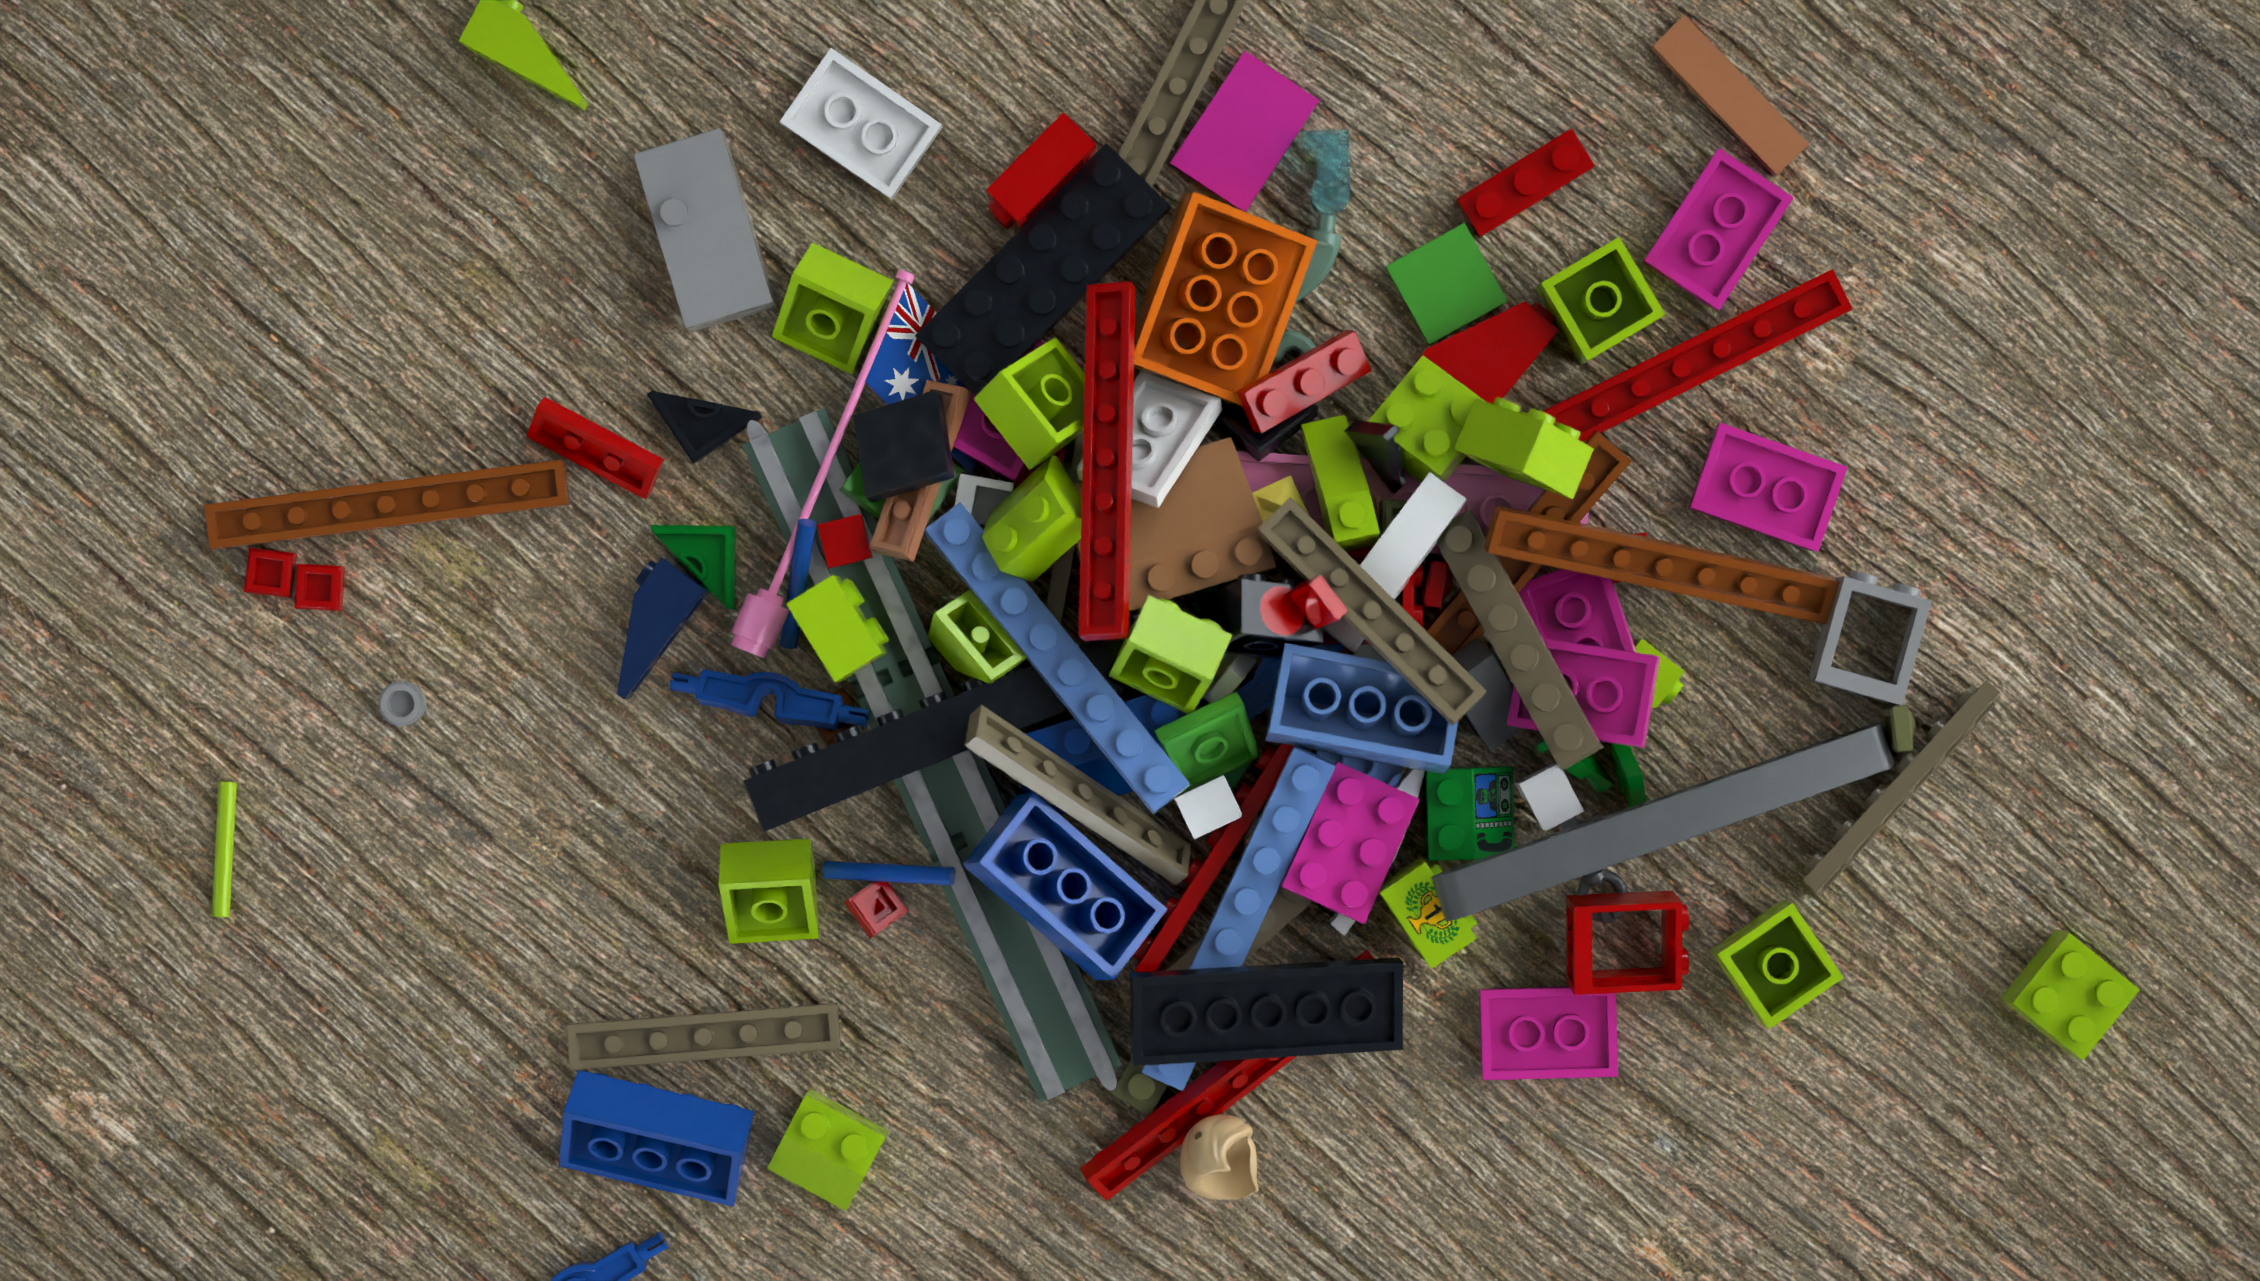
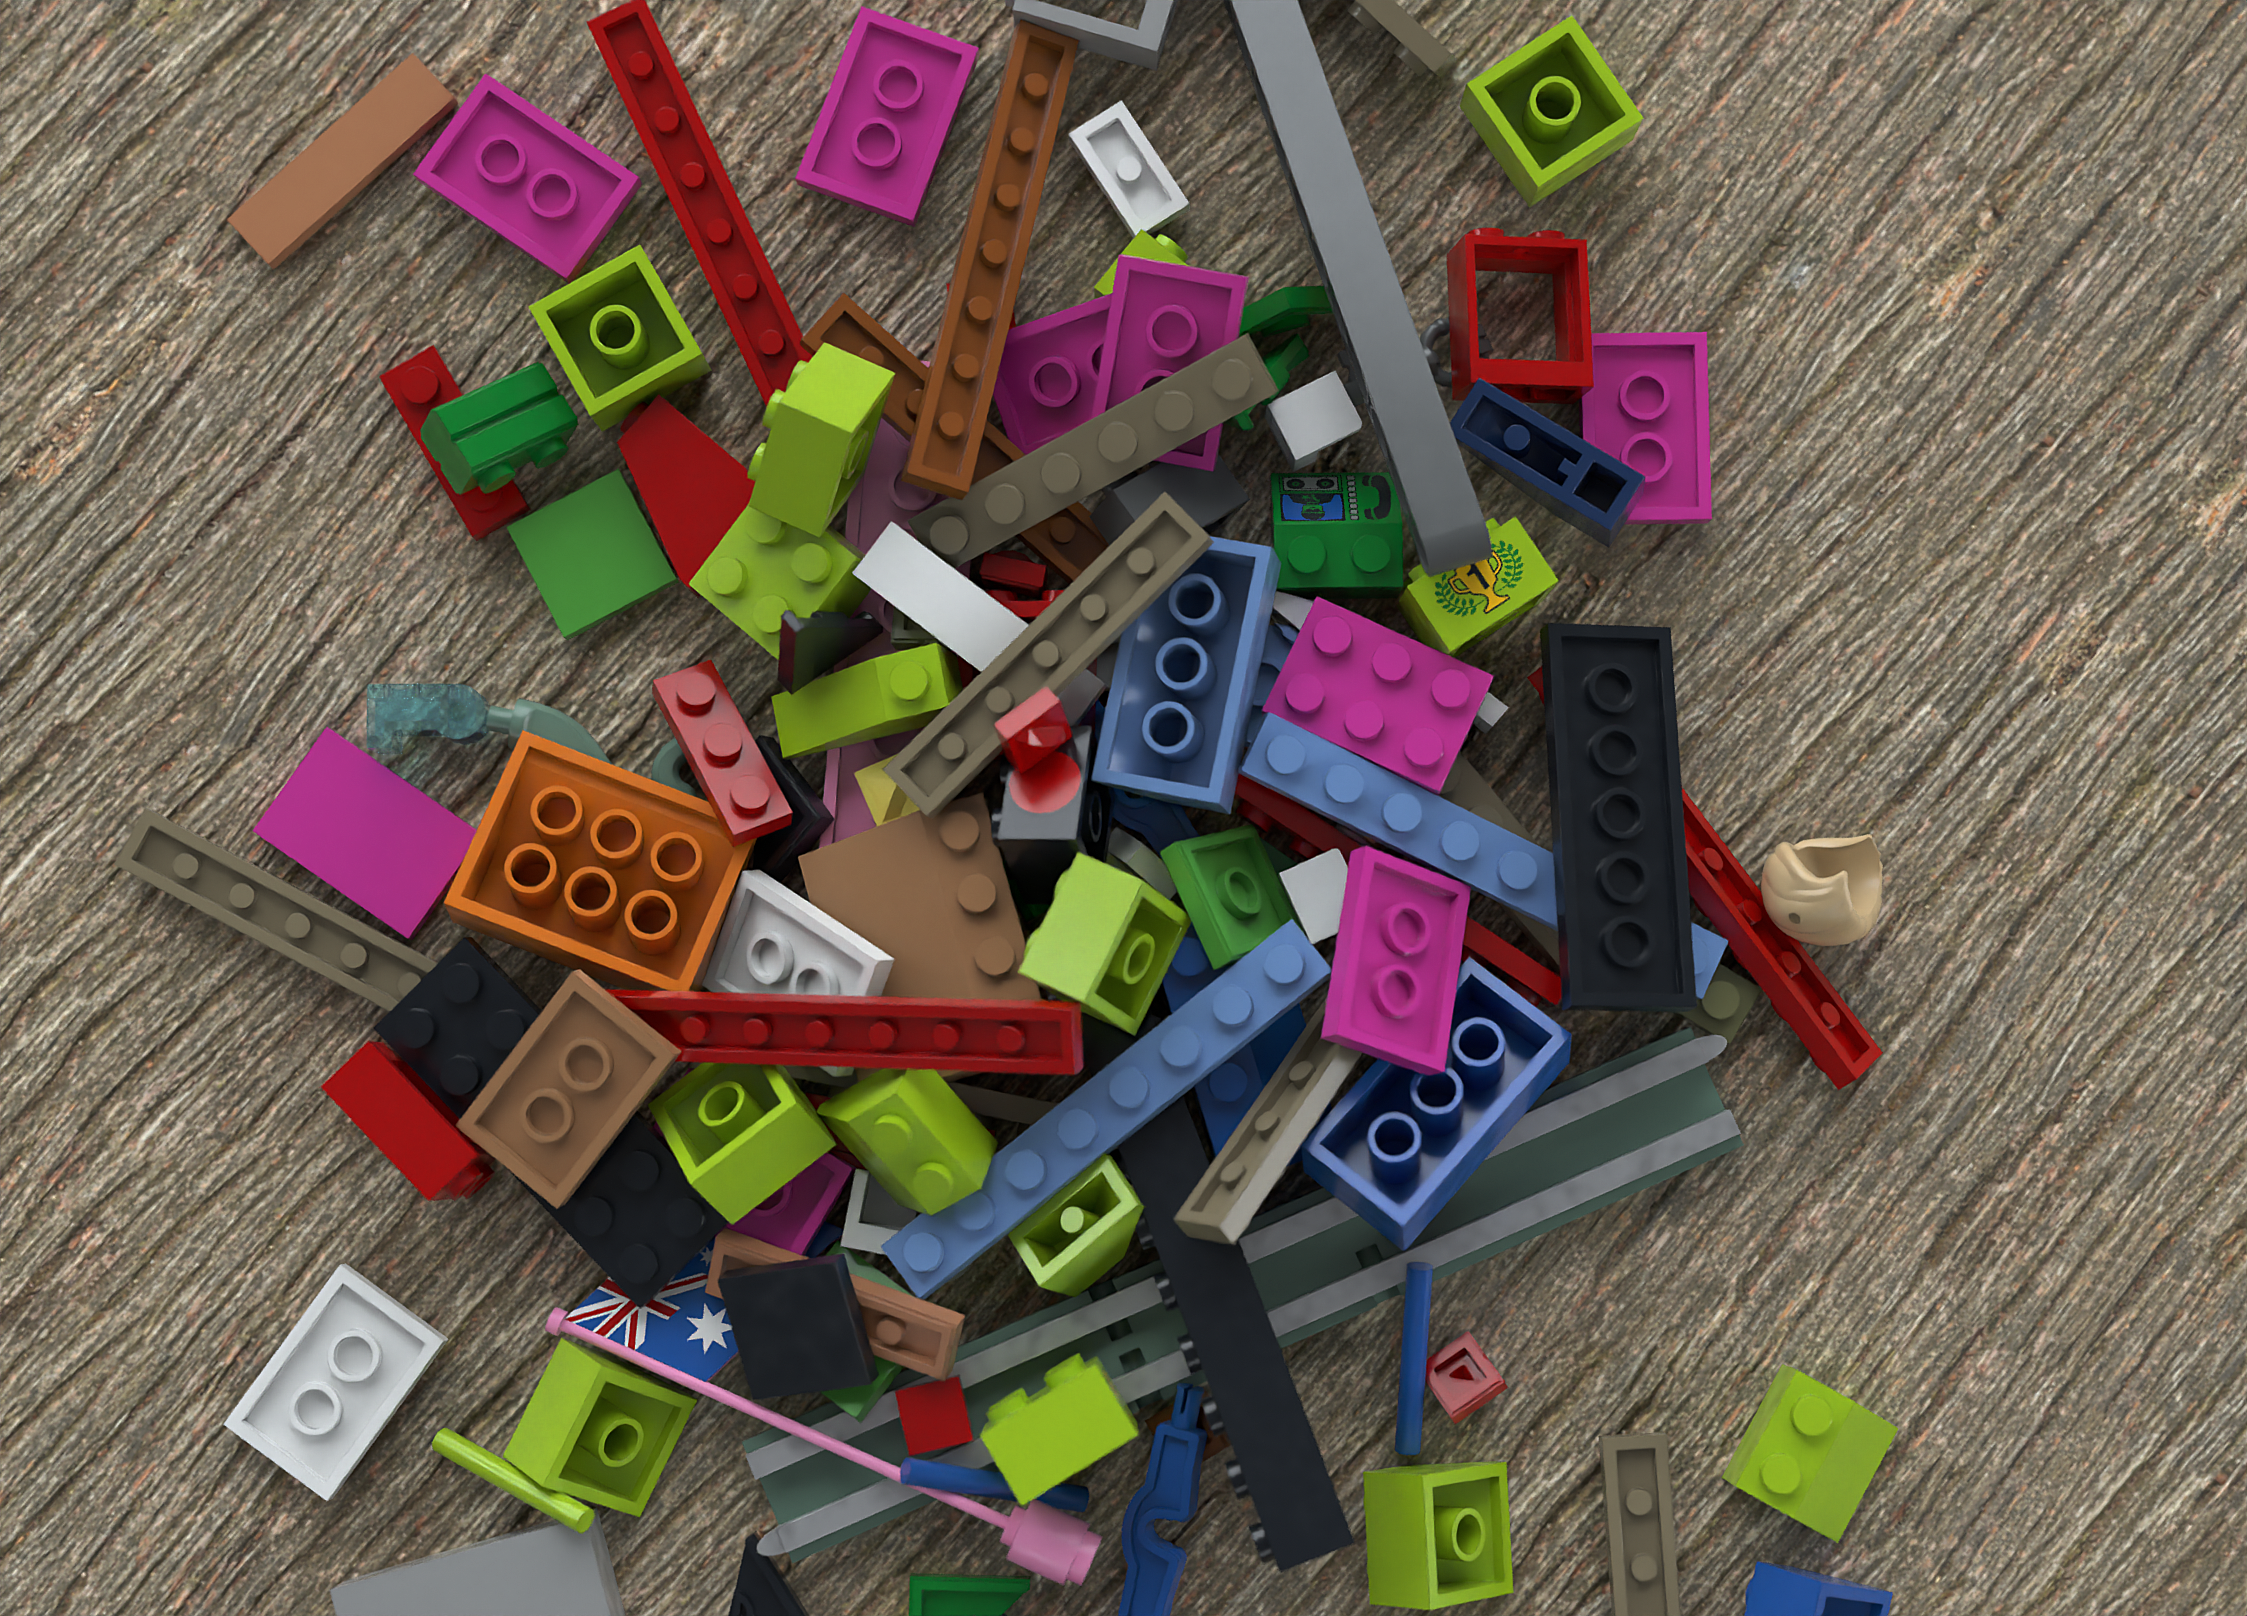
camera: 85 degrees left, 5 degrees down
(796, 250) = (512, 1480): none -> lime bar
(1065, 283) = (568, 1088): none -> medium nougat plate
(1162, 857) = (1396, 961): none -> dark pink plate
(1518, 961) = (1548, 462): none -> dark blue slope
(1532, 217) = (500, 429): none -> green brick
(1729, 661) = (1128, 170): none -> white plate

